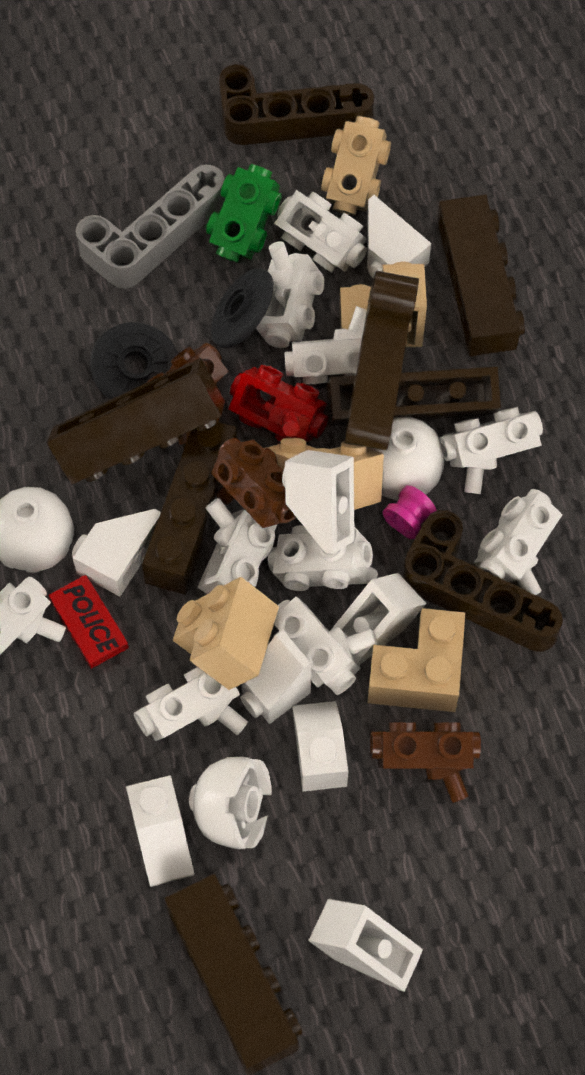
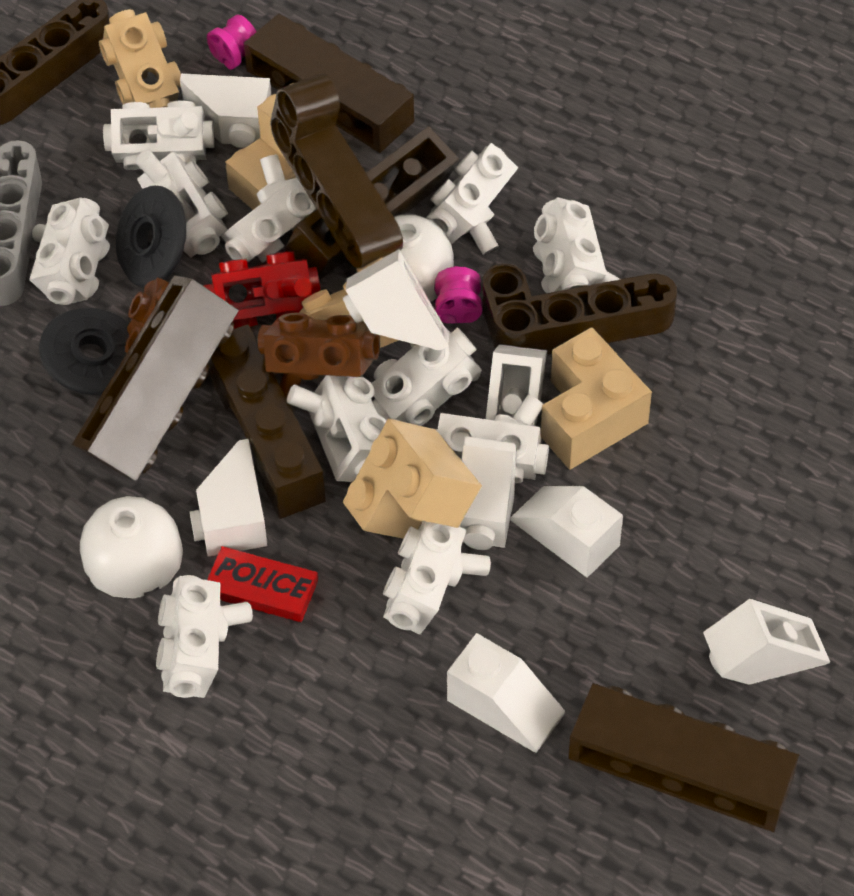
camera: 40 degrees left, 10 degrees down
(182, 279) = (70, 251): none -> white brick
(227, 798) = (541, 623): white cylinder -> none
(248, 201) = (73, 149): green brick -> none
(437, 751) = (673, 452): reddish brown brick -> none
(440, 189) = (228, 43): none -> dark pink wheel

